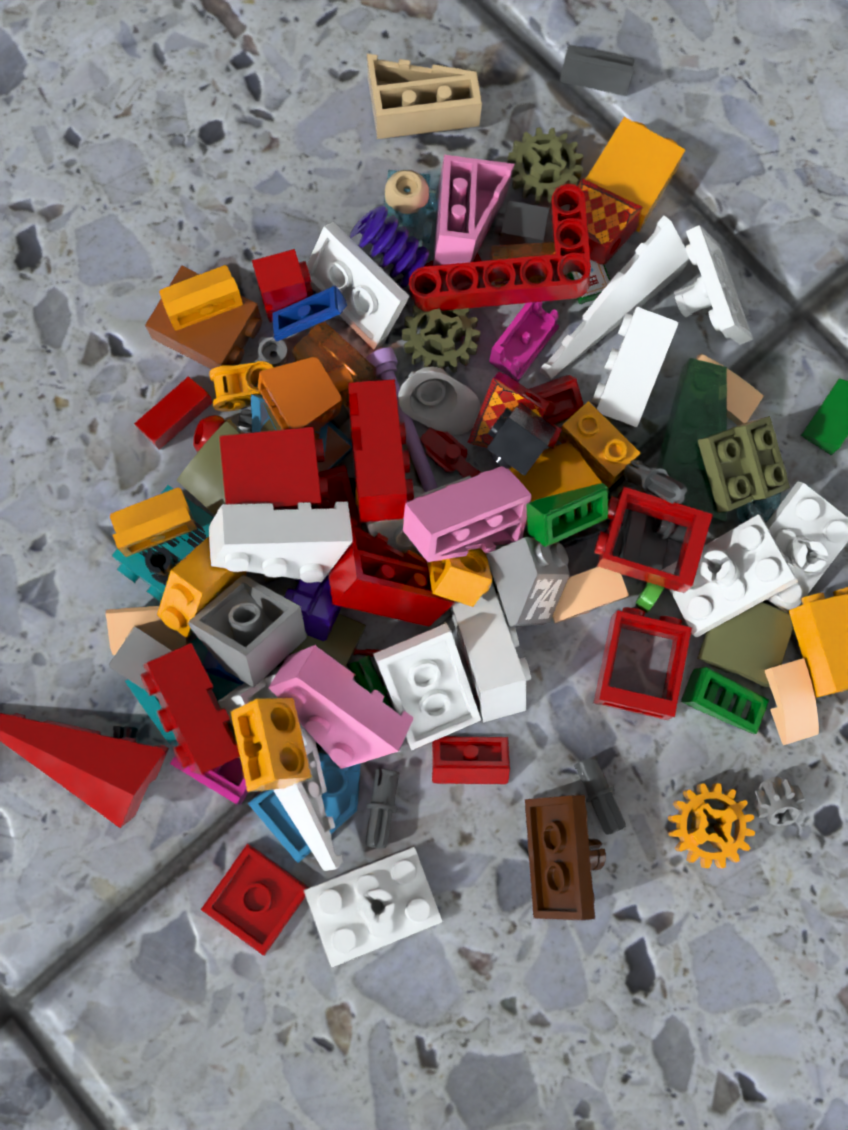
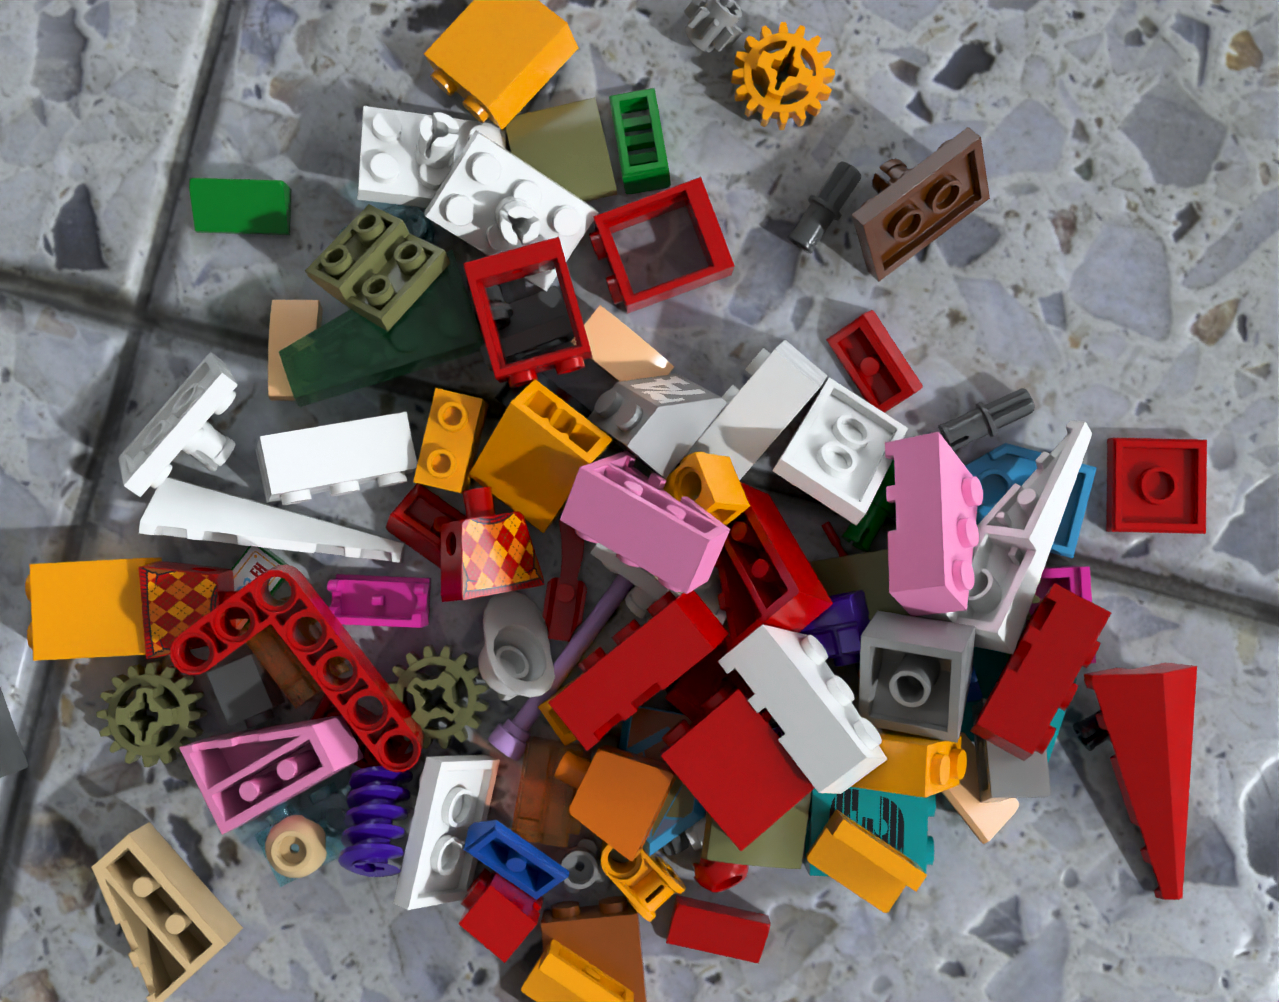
camera: 120 degrees left, 10 degrees up
(160, 564) = (910, 816): black pin -> none
(270, 744) = (1031, 563): light orange brick -> none
(372, 906) = (1089, 364): white plate -> none
(519, 438) = (517, 522): black brick -> none
(545, 512) = (570, 417): green slope -> none
(648, 597) = (584, 284): bright green tile -> none
(655, 482) = (464, 348): dark grey axle -> none
(795, 701) = (594, 67): light nougat slope -> none

